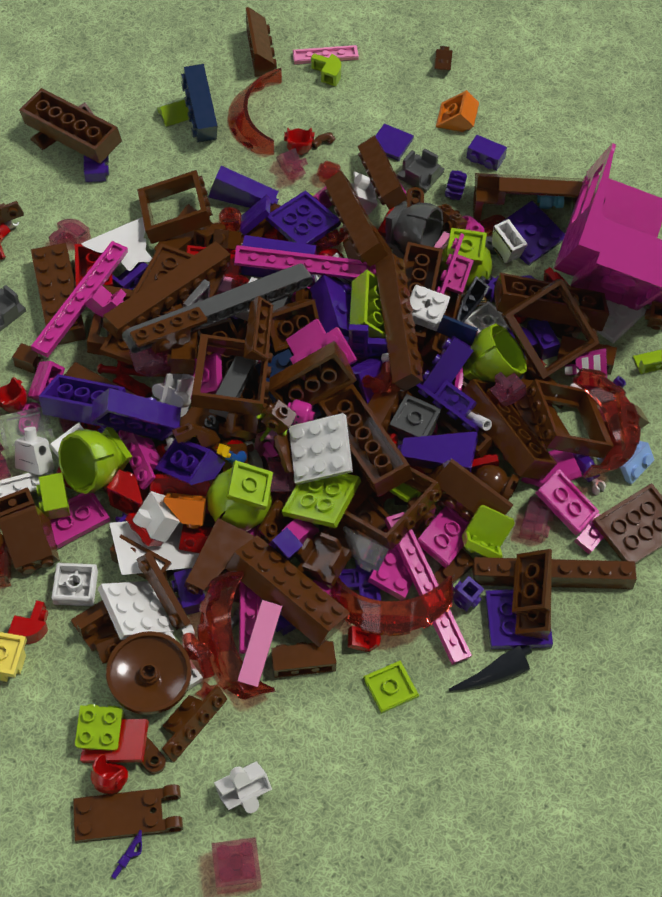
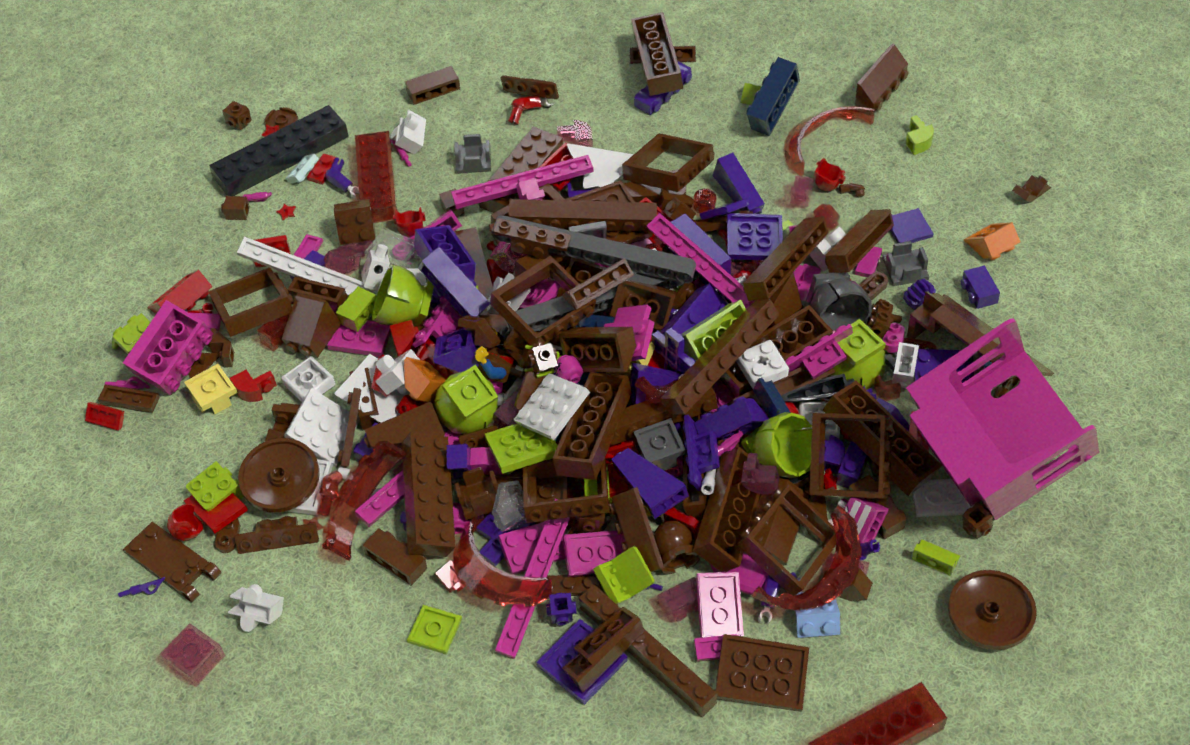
camera: 50 degrees right, 5 degrees down
(260, 643) = (369, 516): bright pink tile -> none
(344, 53) = (940, 126): bright pink tile -> none
(500, 266) = (887, 390): none -> clear red panel
(503, 668) = (525, 685): black piece -> none

